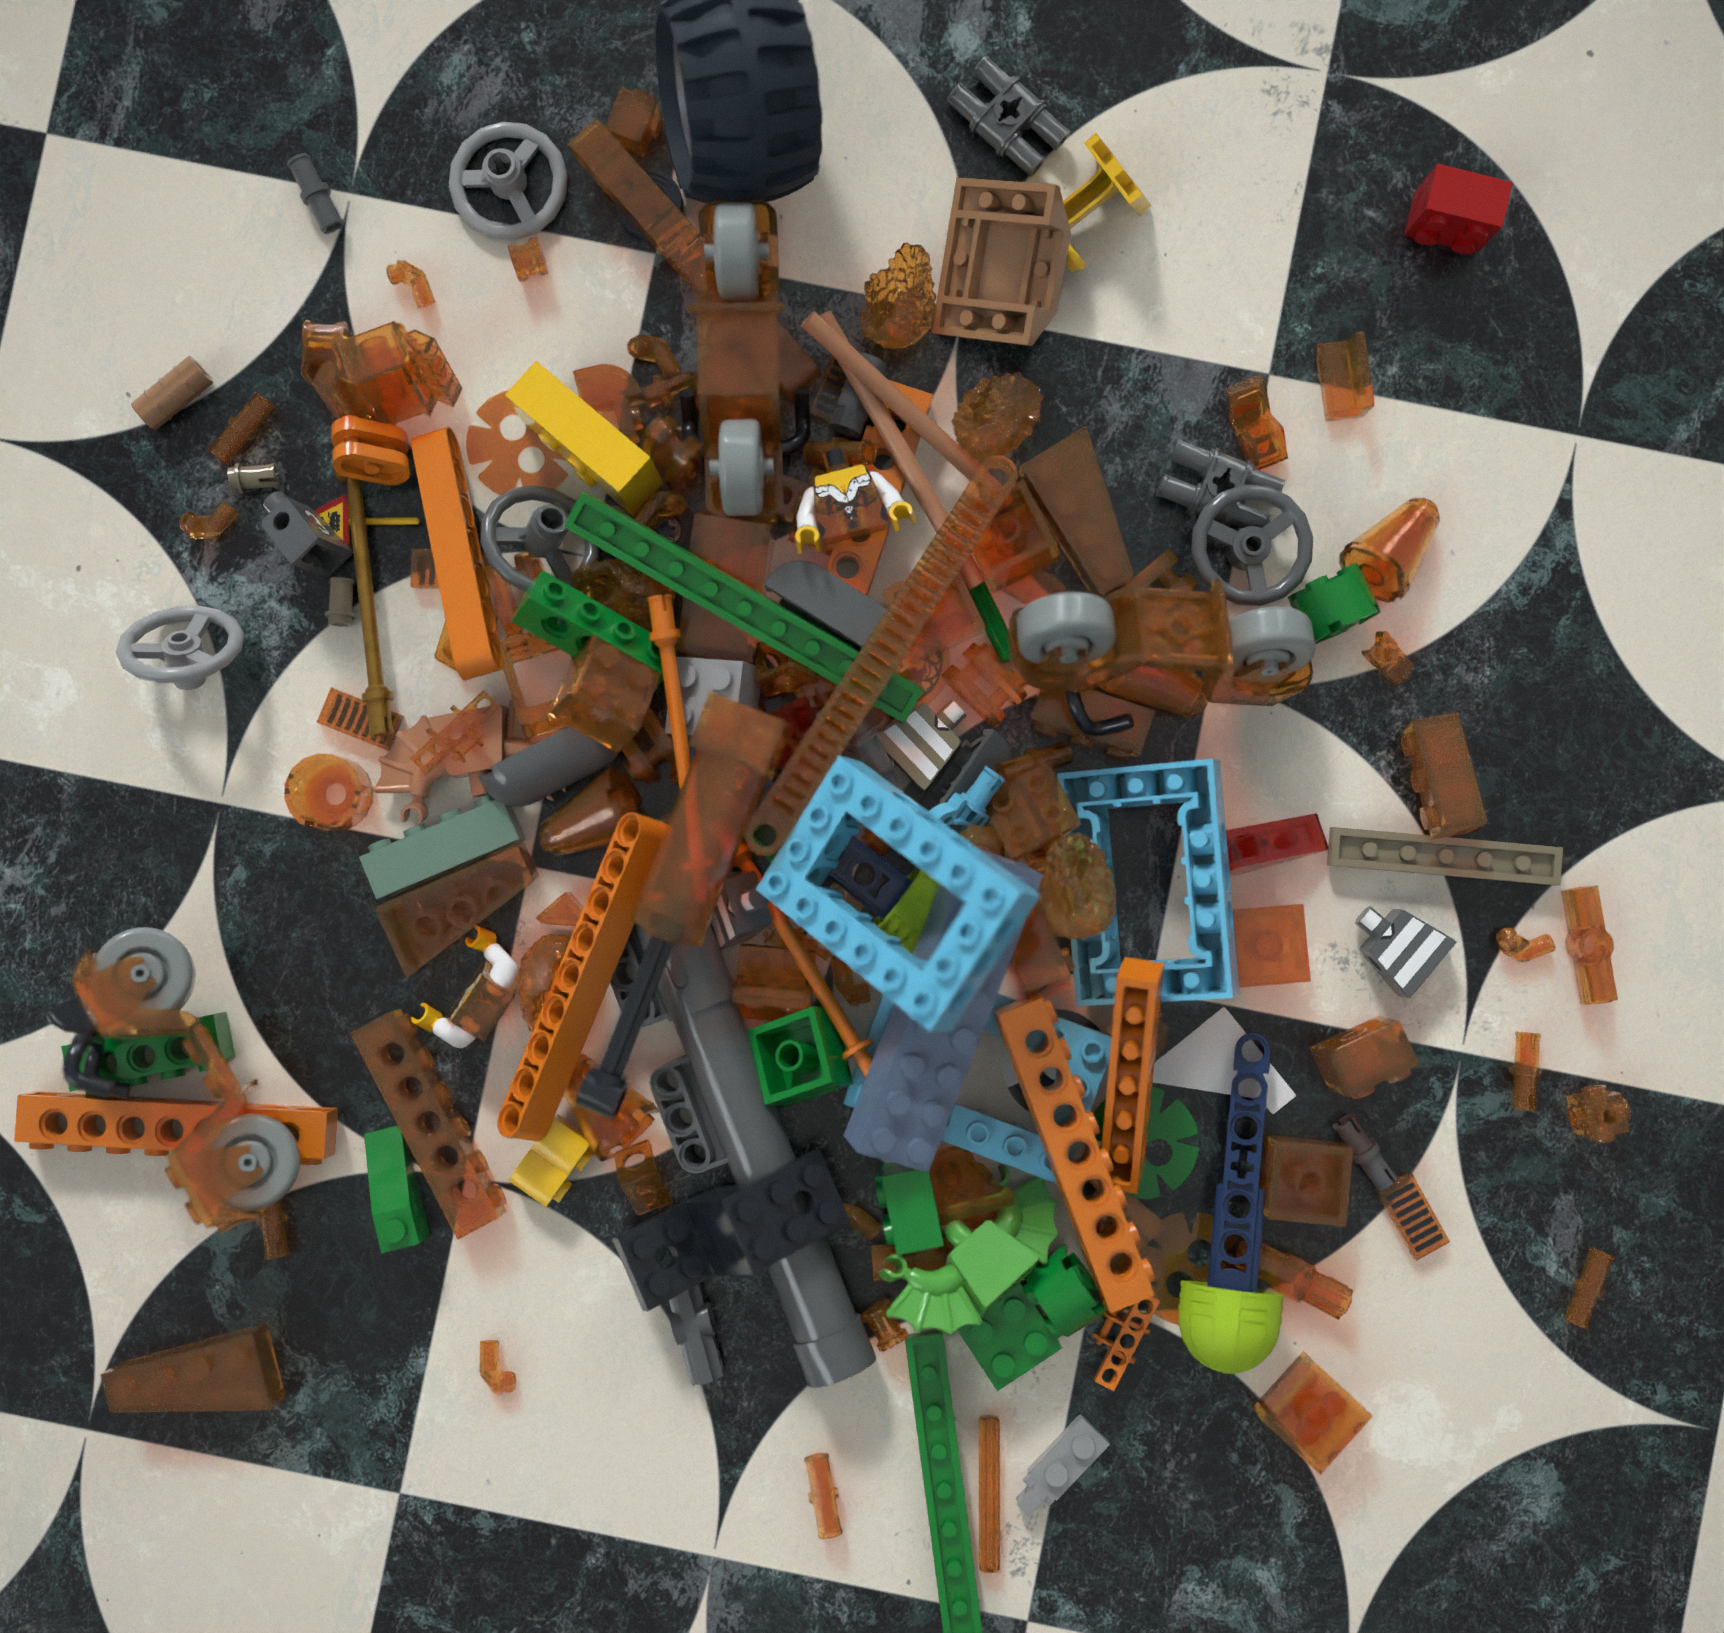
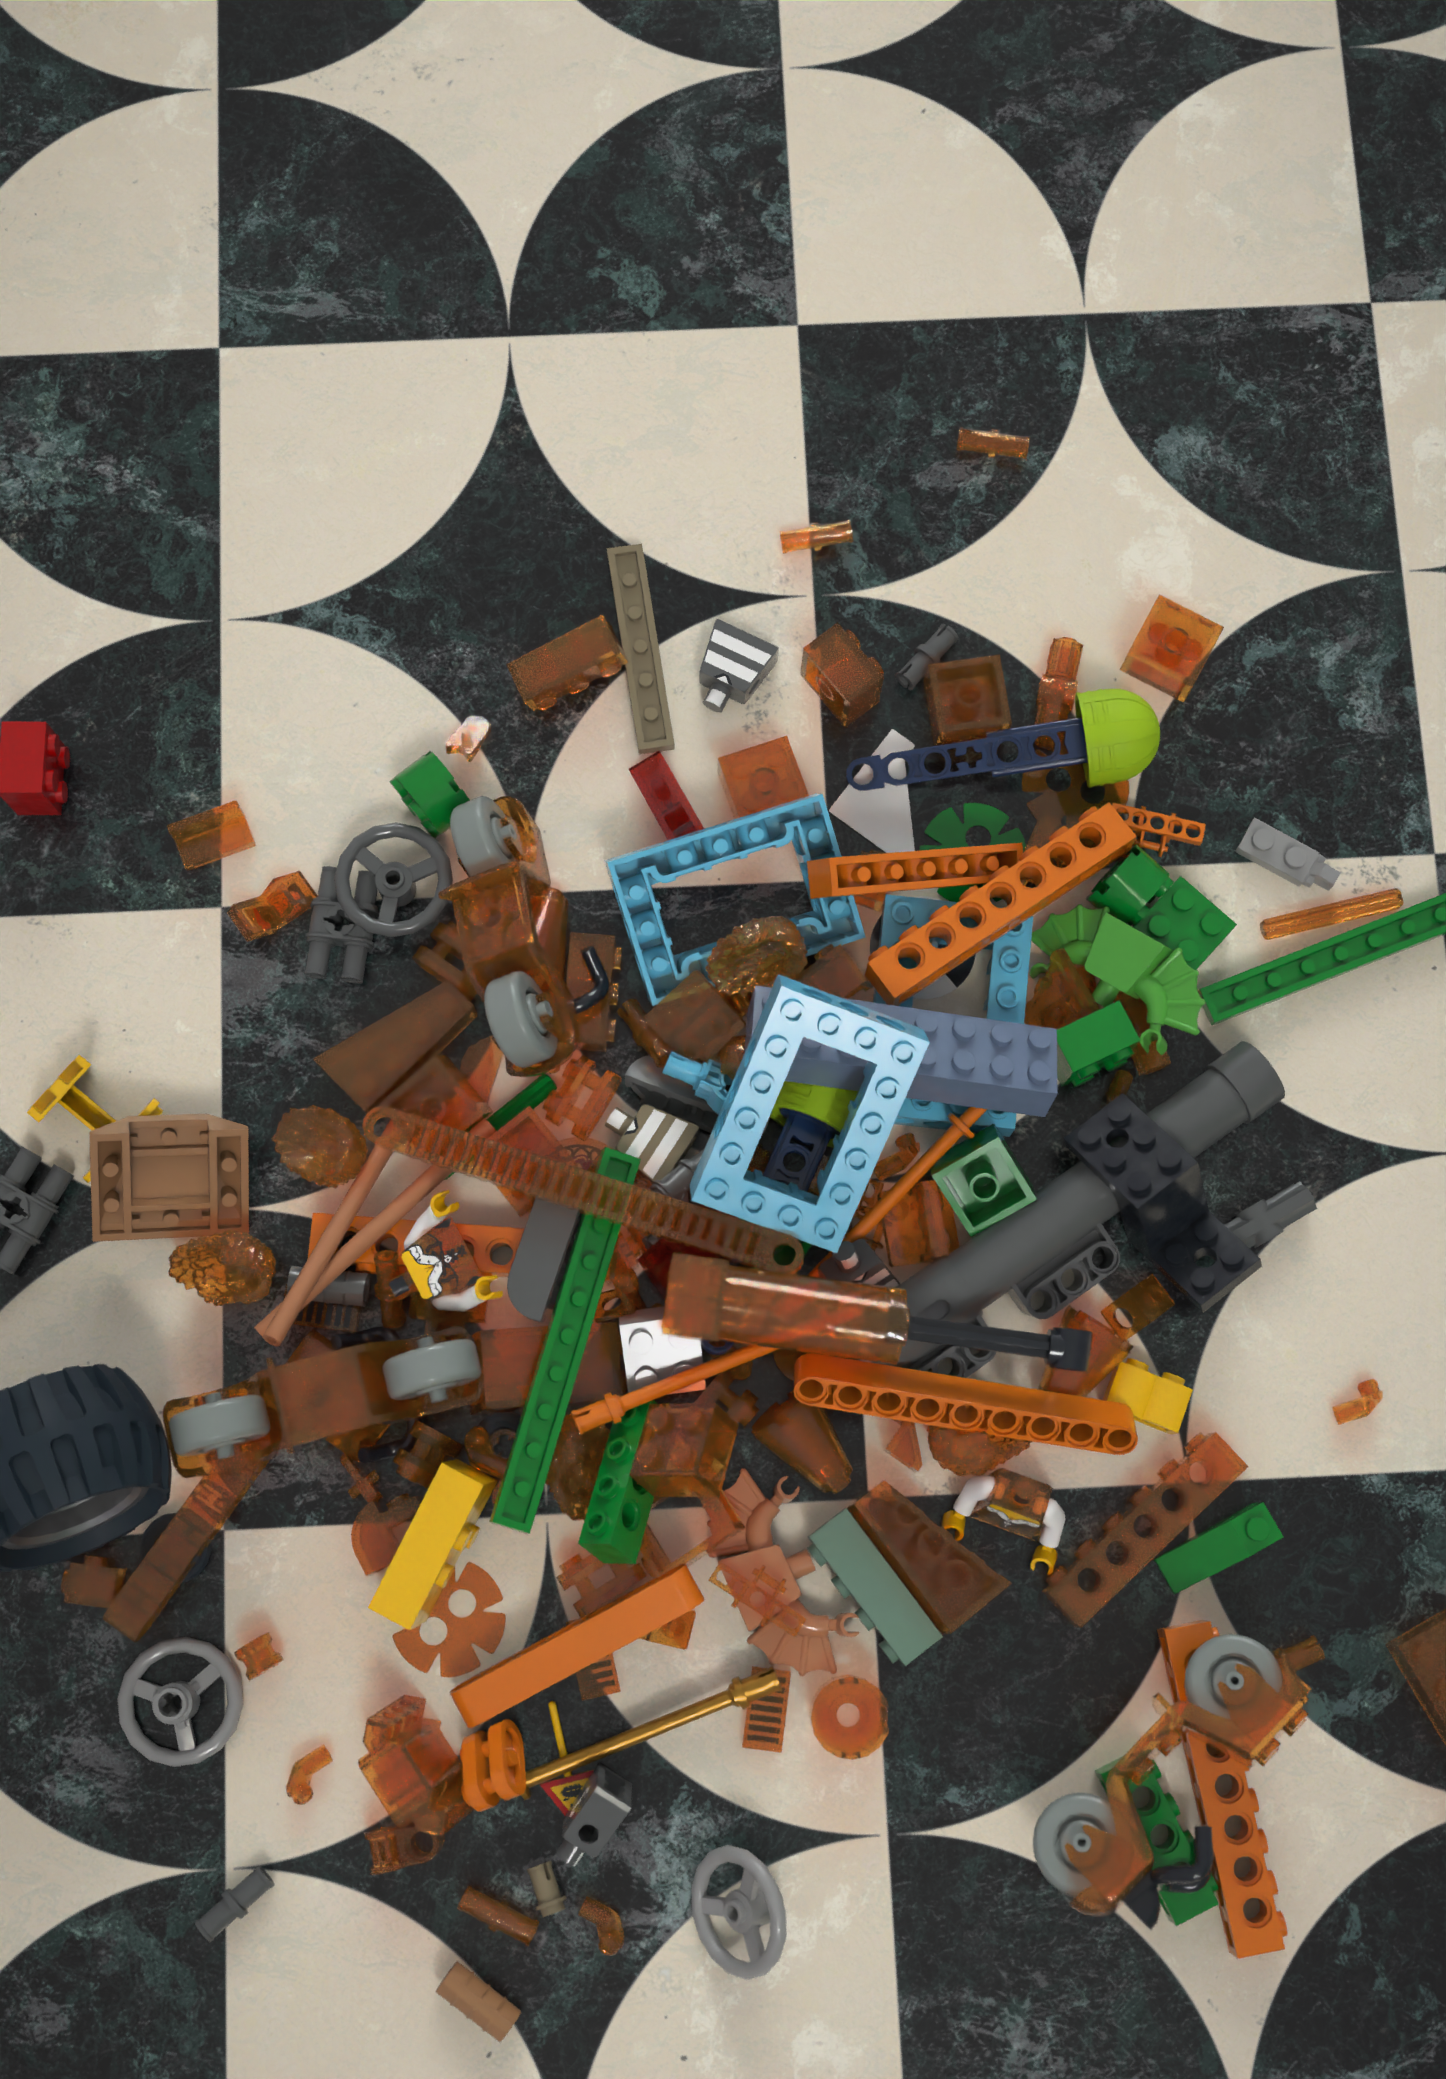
camera: 110 degrees left, 10 degrees down
(340, 602) = (653, 1760): dark tan pin -> none
(540, 536) = (541, 1564): dark grey piece -> none
(546, 768) = (771, 1497): dark grey brick -> none
(654, 350) = (324, 1503): clear orange arm -> none
(823, 1495) = (1380, 1062): clear orange pin -> none
(885, 1329) = (1208, 1044): clear orange bush -> none
(1394, 548) = (366, 754): clear orange cone -> none
(1413, 1216) = (973, 603): clear orange tile -> none
(1521, 948) = (707, 563): clear orange arm -> none
(1592, 970) = (709, 499): clear orange piece -> none
(1598, 1113) = (837, 467): clear orange brick -> none

